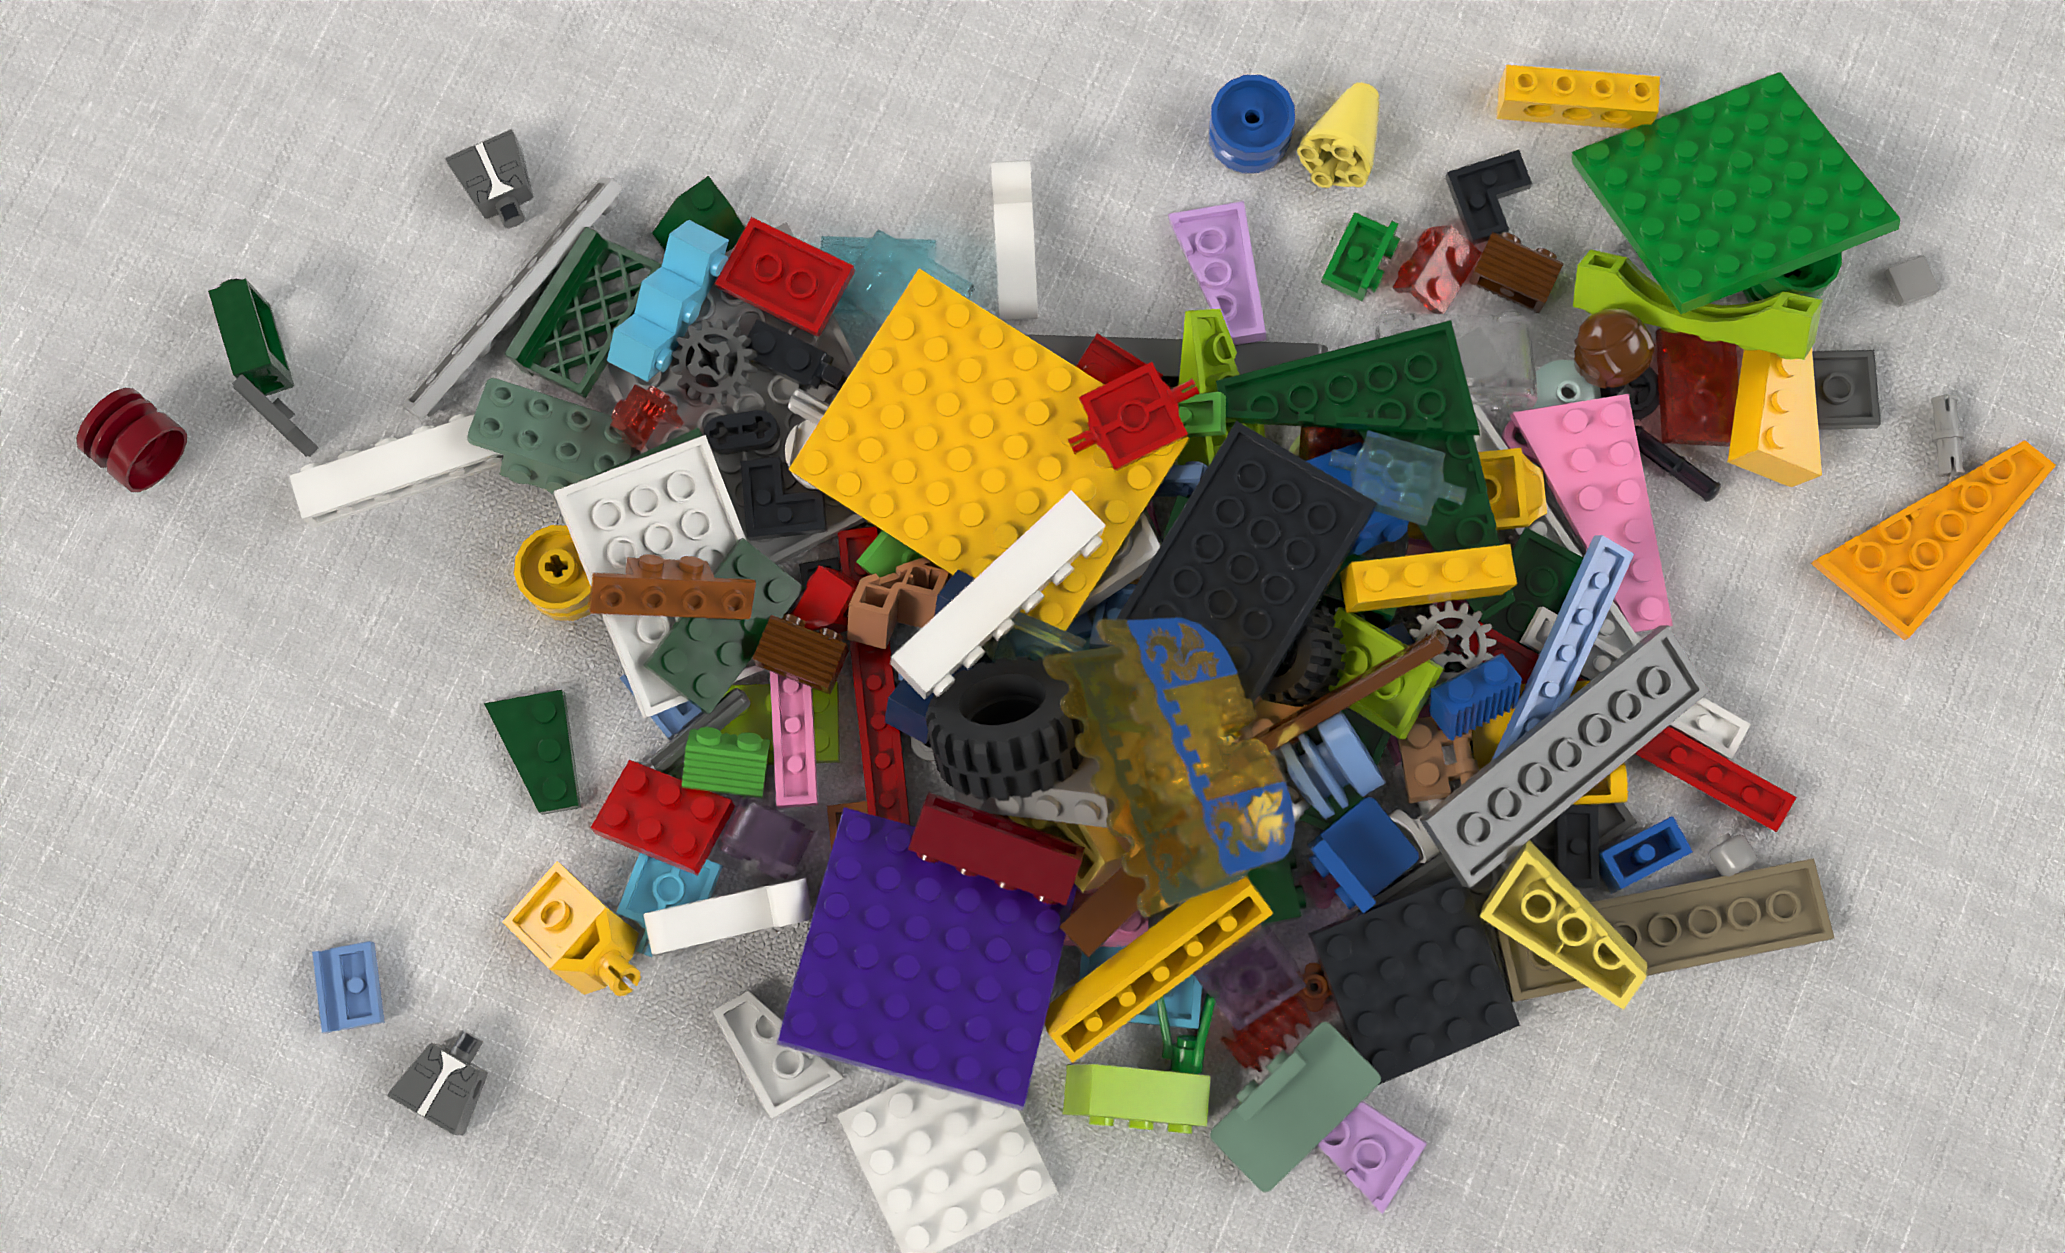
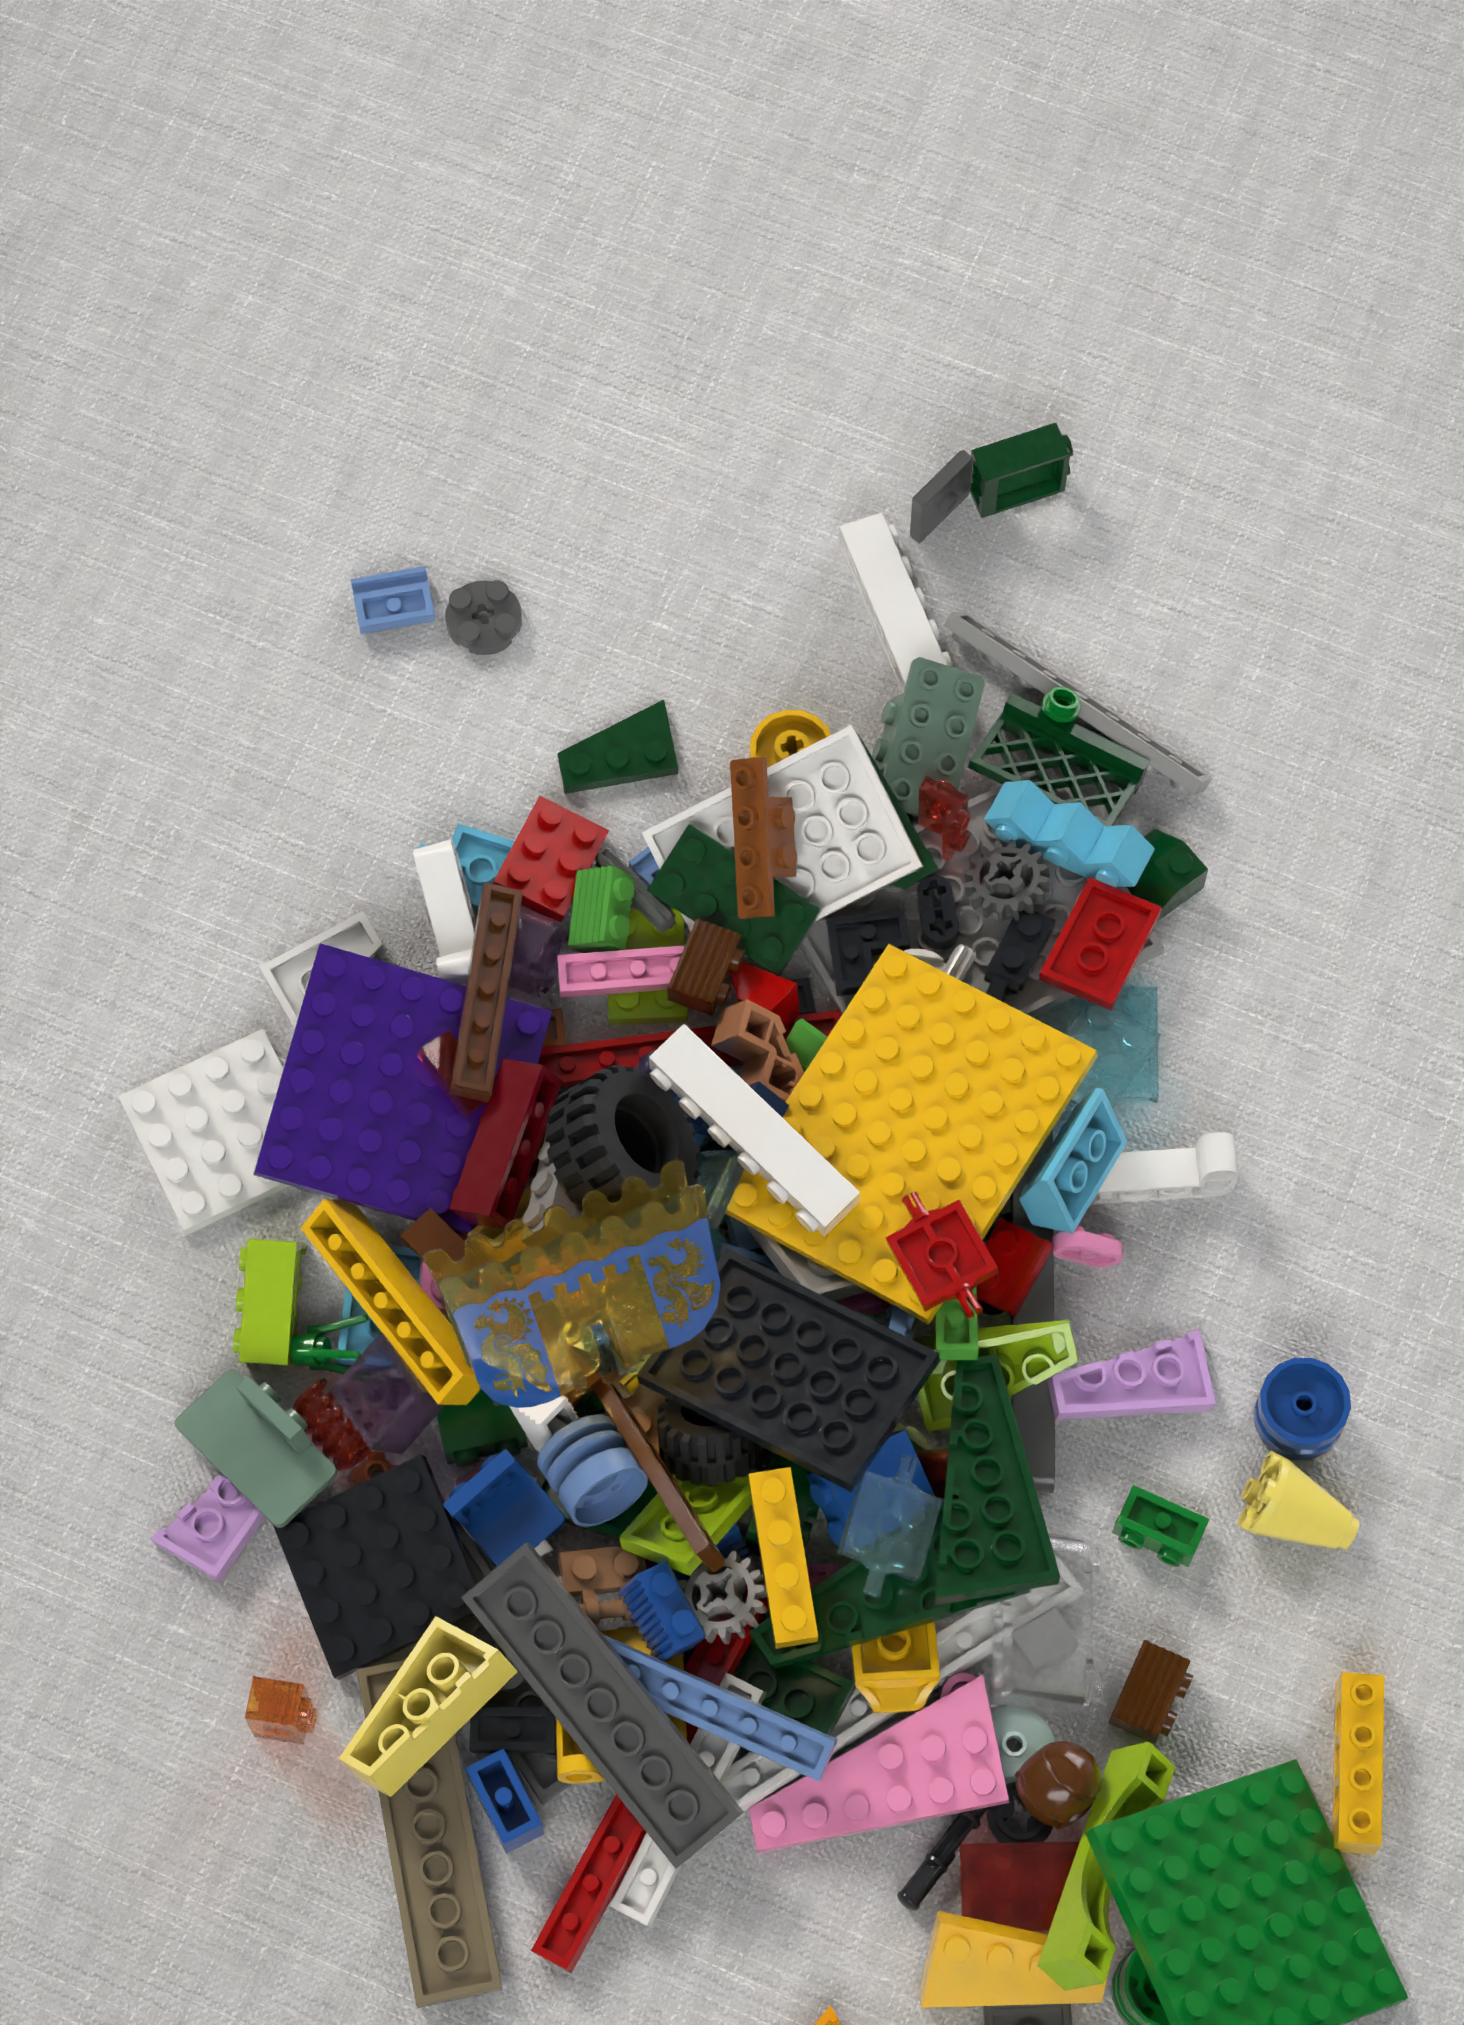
camera: 85 degrees right, 10 degrees down
(131, 439) = (913, 376): dark red wheel -> none
(354, 878) = (479, 597): none -> dark grey plate
(443, 1084) = (299, 685): dark grey torso -> none
(495, 177) = (1202, 679): dark grey torso -> none
(523, 304) = (1061, 704): none -> green plate
(575, 934) = (436, 786): yellow plate -> none
(830, 869) = (486, 992): none -> reddish brown tile
(919, 899) = (439, 1060): none -> slope
(1023, 305) = (1075, 1165): none -> medium azure slope
(1090, 306) = (1088, 1248): none -> bright pink plate
(1437, 267) = (1150, 1608): clear red bracket -> none
(1479, 187) = (1243, 1653): black plate -> none
(1564, 1072) = (280, 1710): none -> clear orange brick
(1732, 854) = (507, 1902): light grey piece -> none

